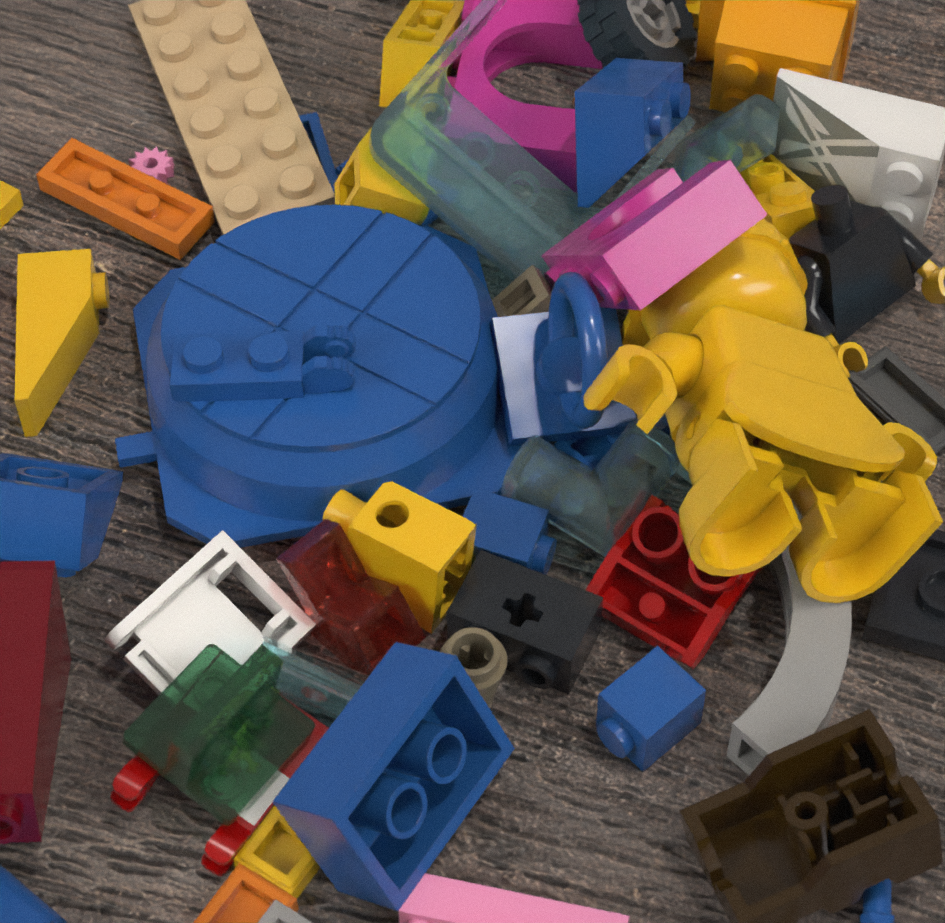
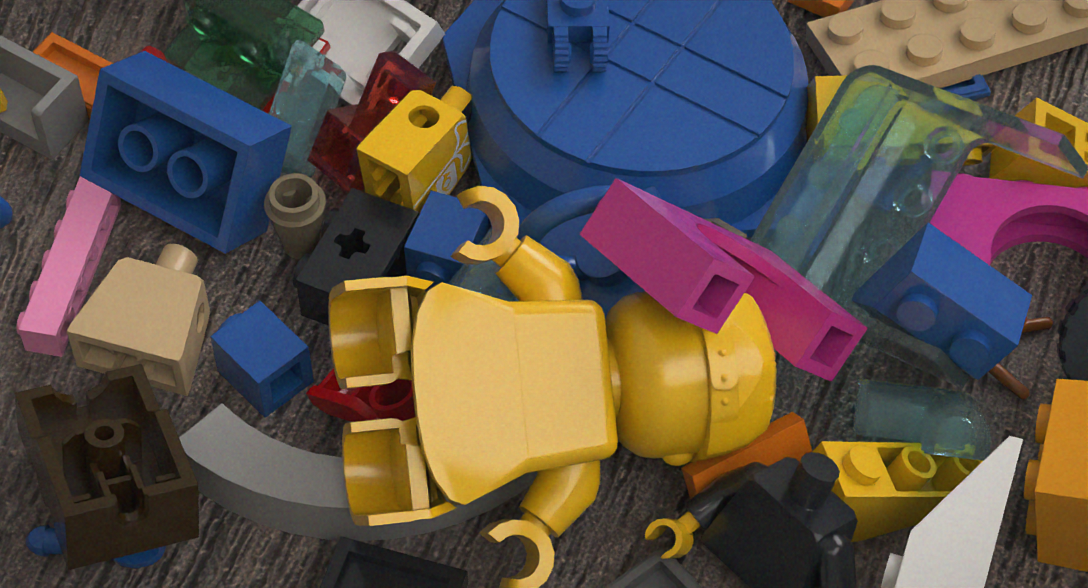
camera: 90 degrees right, 0 degrees up
(600, 824) = (146, 318): none -> tan torso

